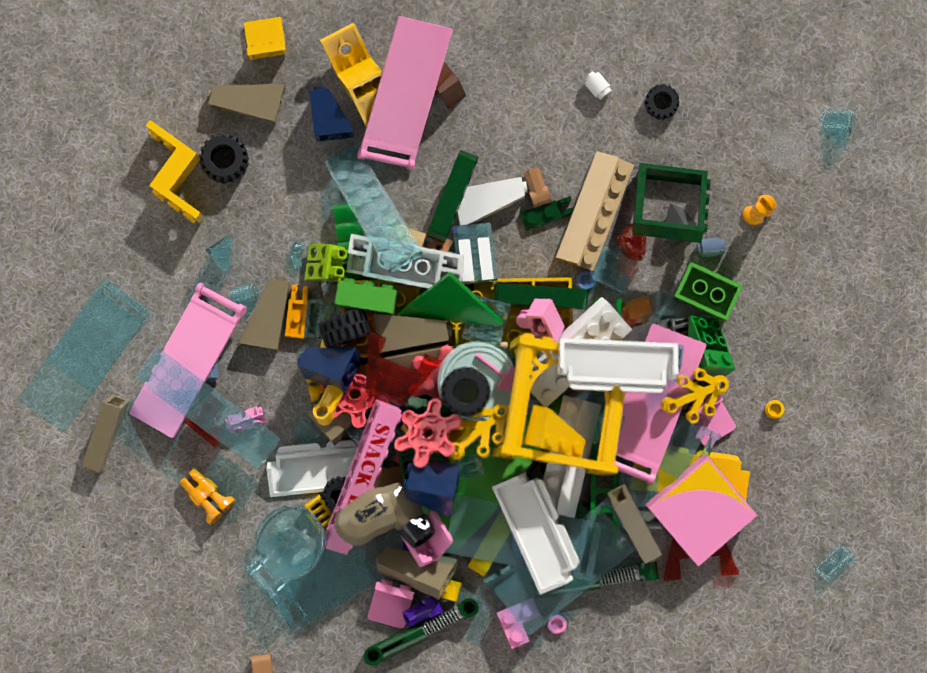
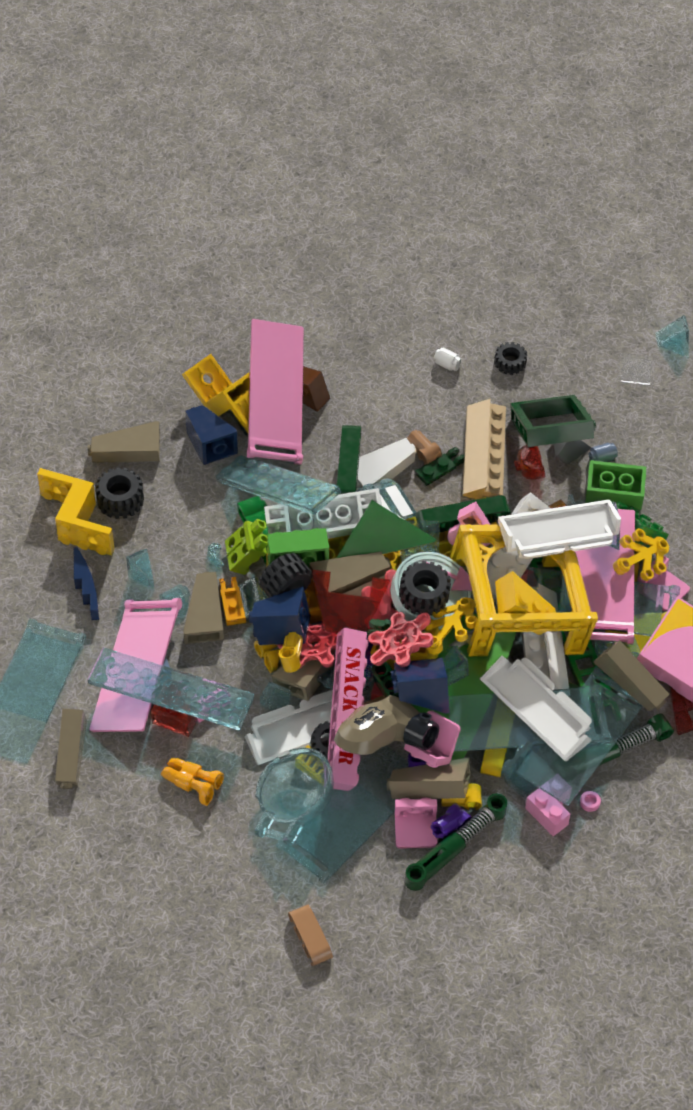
camera: 20 degrees left, 30 degrees down
(164, 245) = (84, 581): none -> dark blue slope
(265, 38) = (129, 397): yellow bracket -> none
(606, 275) = (513, 490): clear light blue plate -> none
(763, 208) = (636, 409): light orange piece -> none

